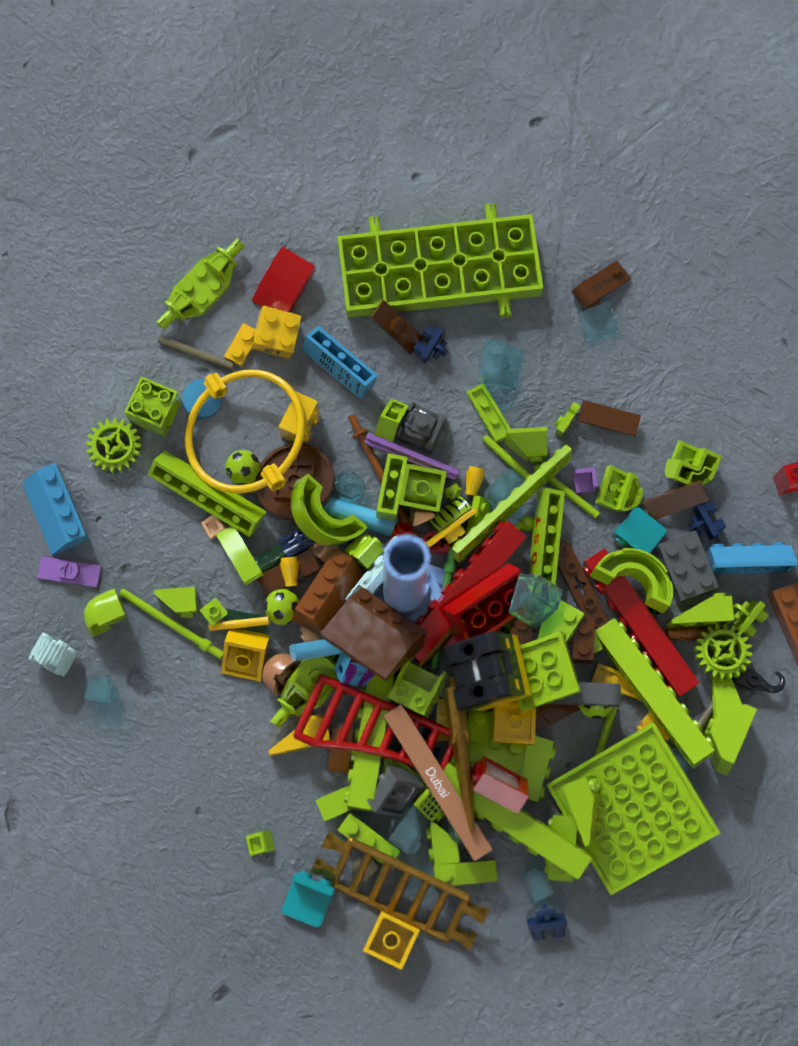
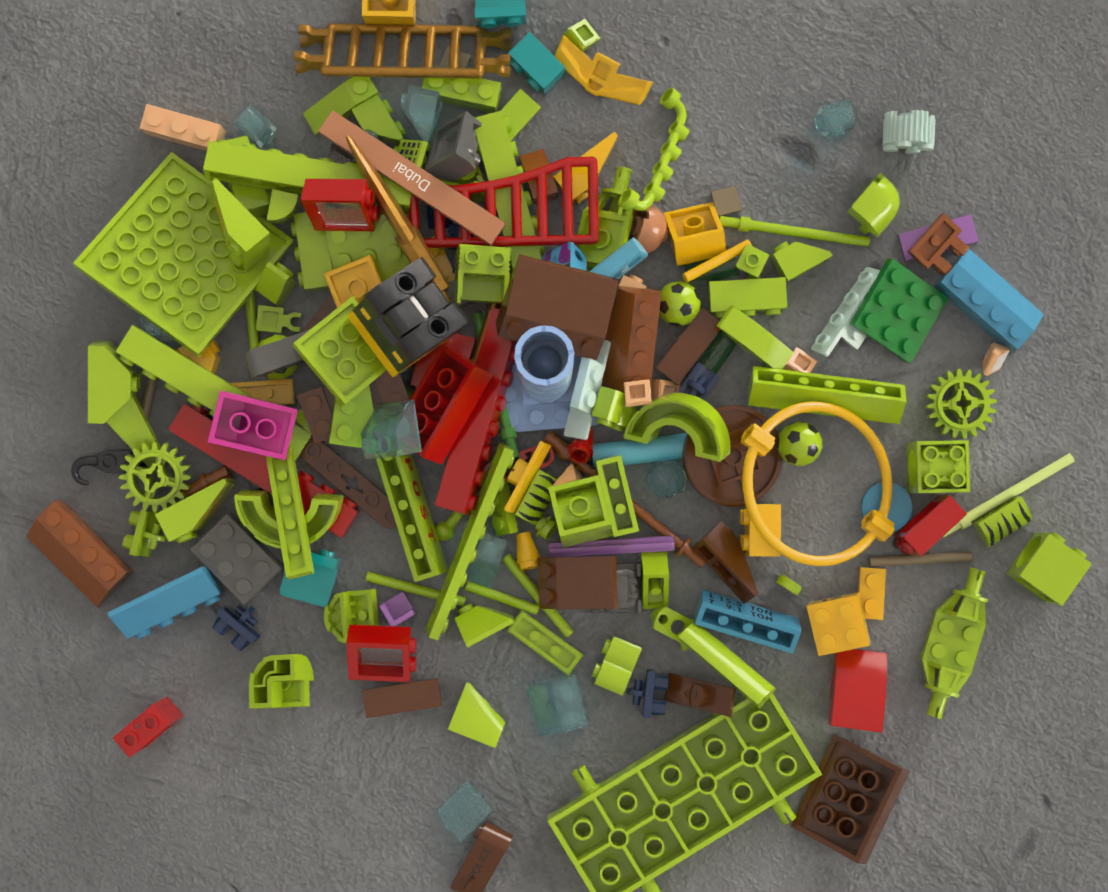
camera: 160 degrees right, 10 degrees up
(73, 566) = (934, 241): none -> dark orange plate
(74, 466) = (994, 358): none -> light nougat slope
(110, 304) = (1049, 567): none -> lime brick
(125, 353) = (1003, 521): none -> lime brick
(125, 529) = (898, 310): none -> green plate
(151, 365) = (1012, 492): none -> yellowish green bar
(158, 542) = (839, 322): none -> light aqua bracket
(180, 369) = (929, 525): none -> red window
(210, 668) = (726, 201): none -> dark tan tile
(221, 735) = (669, 152): none -> lime bar
(229, 590) = (748, 296): none -> lime brick
(259, 805) = (601, 74): none -> yellow plate
(289, 568) = (689, 348): yellow cone -> none
(297, 374) = (788, 585): none -> lime tile
(302, 835) = (536, 64): none -> teal brick
(323, 213) = (850, 799): none -> reddish brown slope
(333, 410) = (726, 558): none -> reddish brown slope
(343, 550) = (637, 393): none -> light nougat slope
(367, 337) = (727, 664): none -> lime brick
(396, 391) = (664, 625): none -> lime piece
(445, 374) = (617, 664): none -> lime brick
(448, 439) = (577, 582): none -> reddish brown slope
(479, 446) = (534, 592): none -> lime bar
(544, 808) = (283, 207): none -> lime brick
(547, 920) = (228, 92): dark blue hips -> none
(562, 381) = (476, 718): none -> lime slope
(564, 422) = (452, 668): lime plate -> none
(573, 756) = (276, 283): none -> lime slope
(586, 731) = (272, 319): none -> lime plate
(594, 908) = (180, 128): none -> light nougat brick
(609, 452) = (380, 653): none -> red window
(632, 584) = (290, 516): none -> lime plate
(635, 651) = (252, 425): none -> dark pink slope
(676, 500) = (282, 632): reddish brown piece -> none

